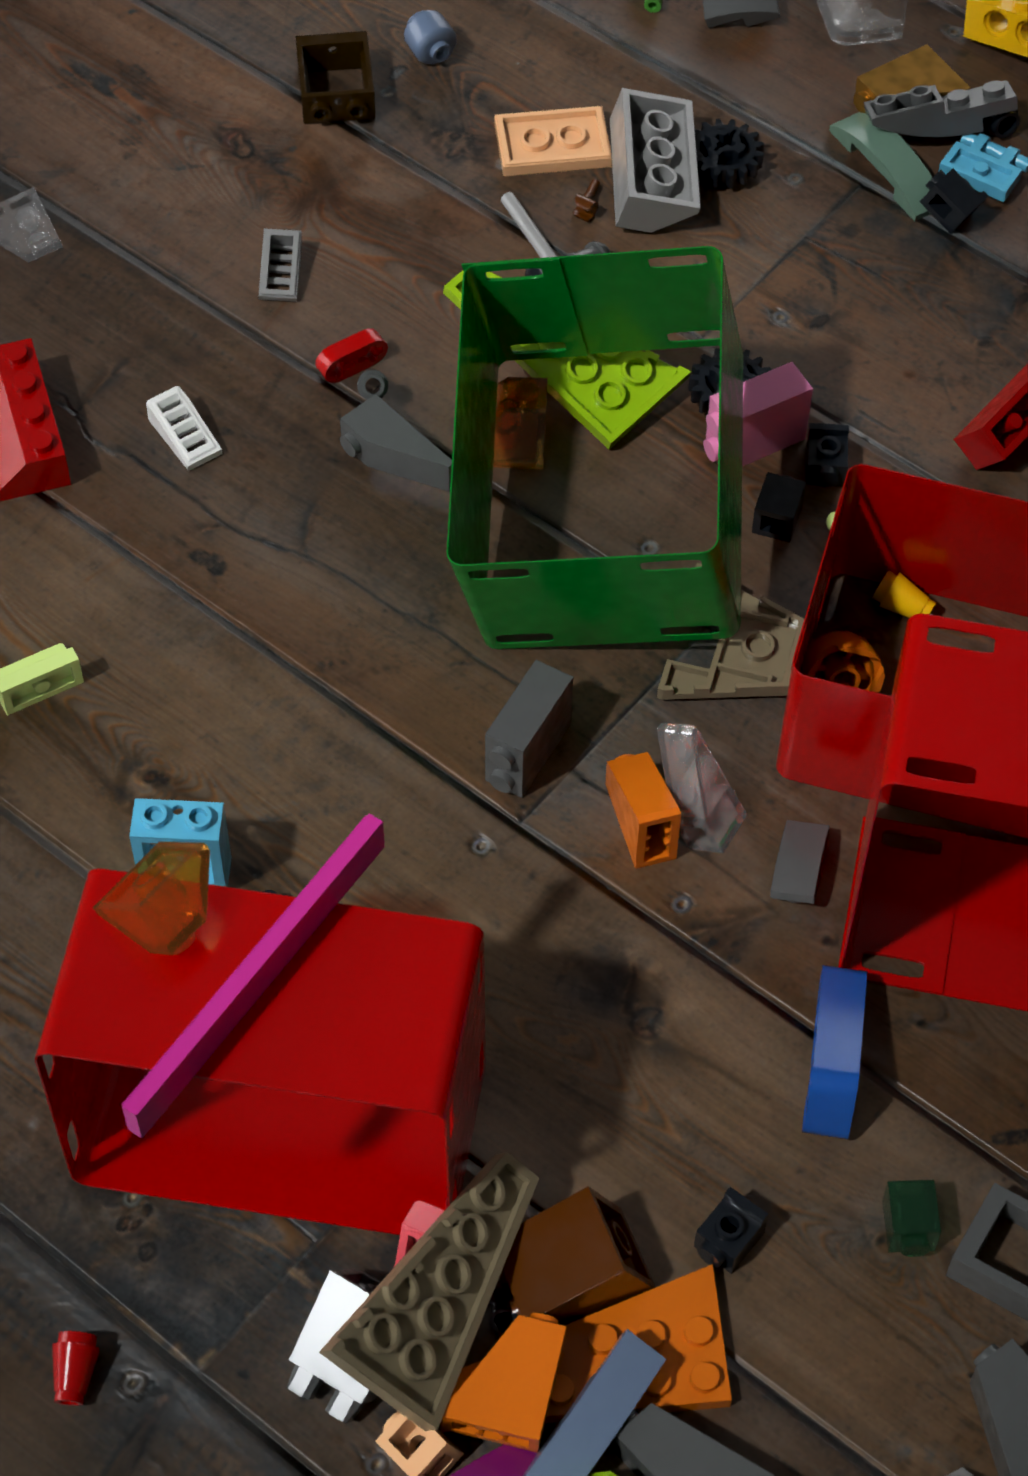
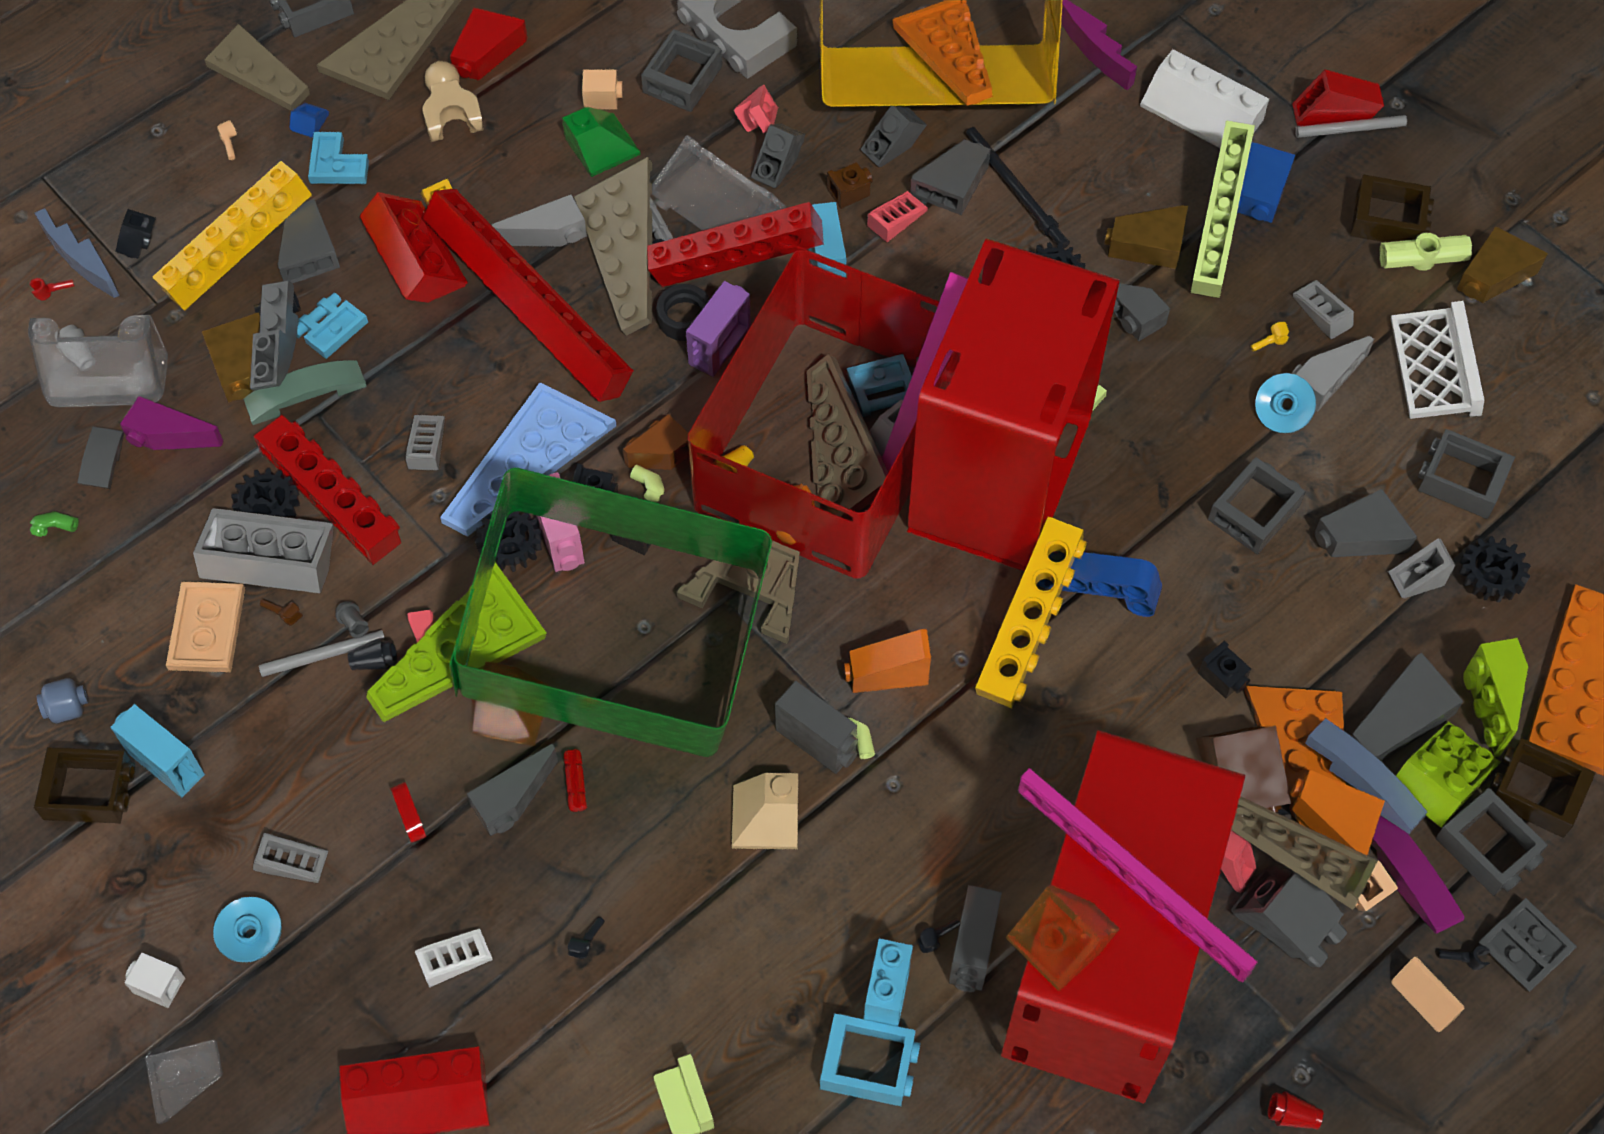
camera: 80 degrees left, 5 degrees up
(85, 815) = (860, 1088): none -> medium azure window
(122, 180) = (154, 979): none -> white brick
(189, 243) = (239, 918): none -> medium azure dish
(212, 548) = (580, 947): none -> black hand
(379, 119) = (157, 750): none -> medium azure brick
(380, 390) = (452, 796): dark grey pin -> none
(412, 709) = (766, 812): none -> tan slope
(417, 508) = (575, 780): none -> red axle
(543, 790) = (864, 743): none -> yellowish green arm
(704, 796) = (892, 617): clear slope -> none
(761, 195) = (372, 542): none -> red brick
(773, 942) = (1054, 537): none -> yellow brick
(793, 46) = (165, 428): none -> magenta slope
(800, 862) = (946, 573): dark grey slope -> none
(829, 290) = (430, 460): none -> light grey slope
(875, 391) = (538, 439): none -> light blue wing
(911, 1217) = (1224, 561): clear green brick -> none
(951, 199) = (366, 352): black brick -> none

